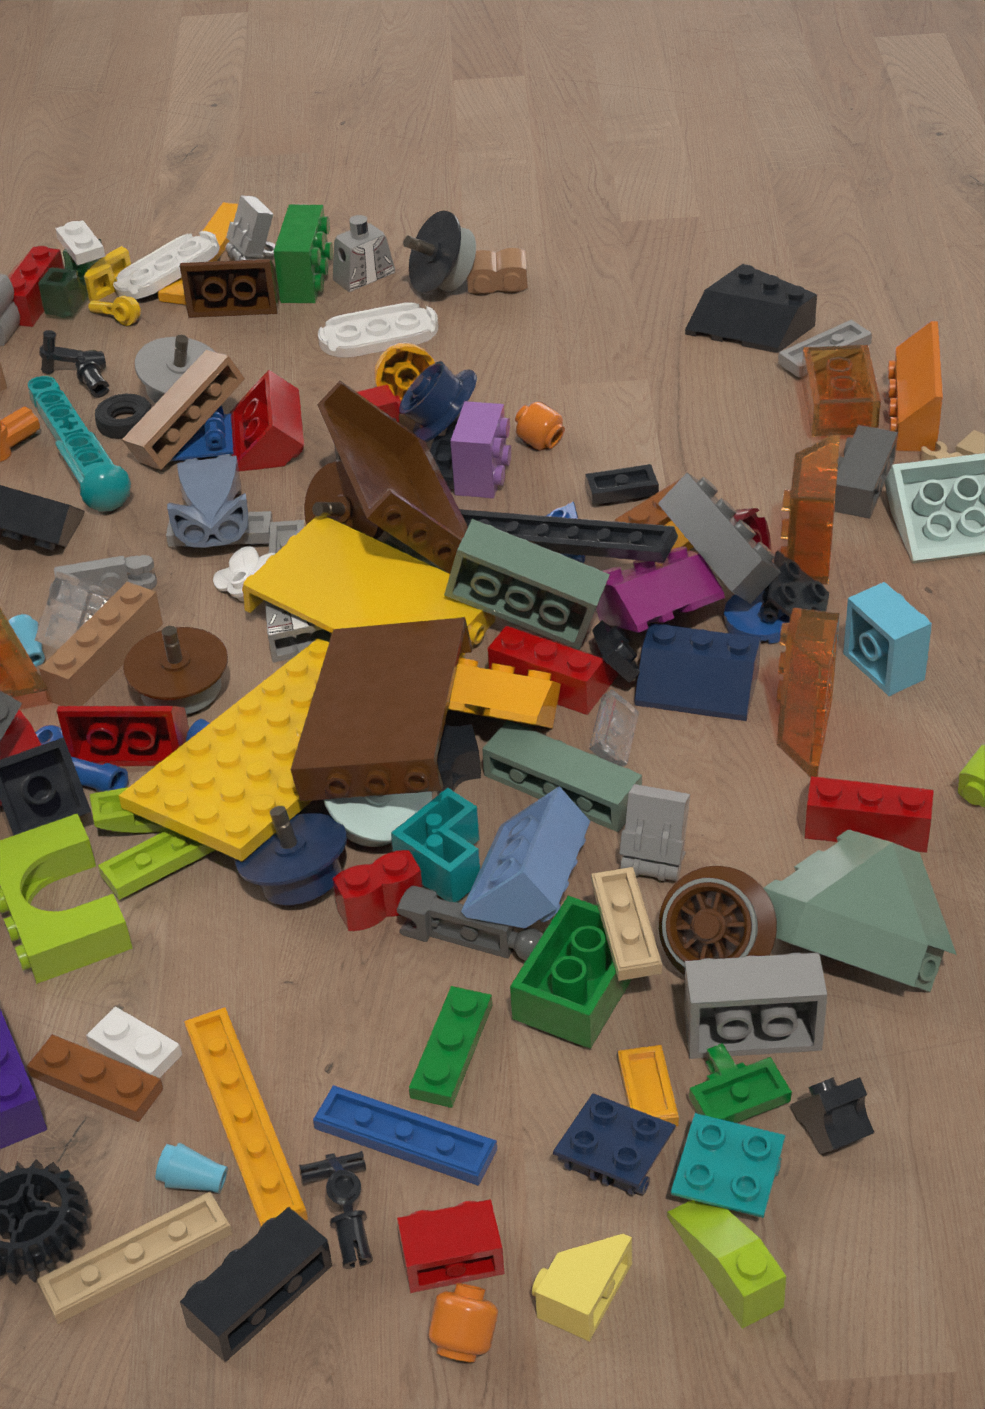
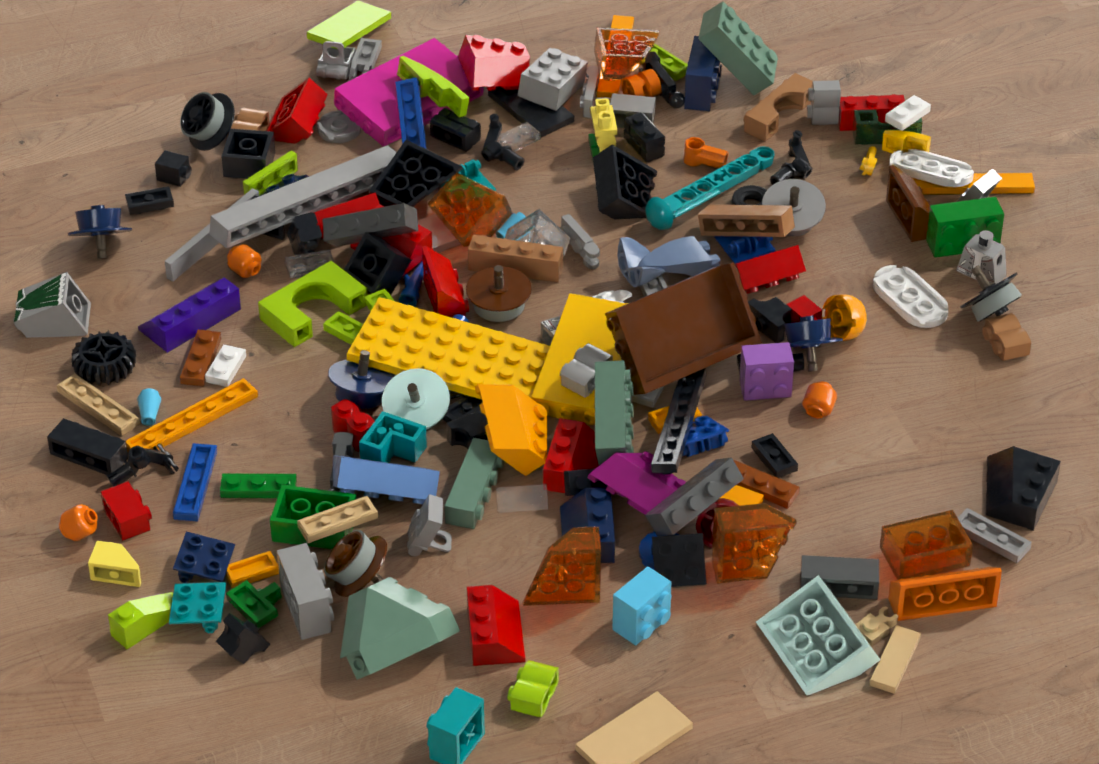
camera: 70 degrees right, 0 degrees up
(379, 710) = (469, 371): reddish brown panel -> none
(415, 592) = (580, 372): none -> light grey brick

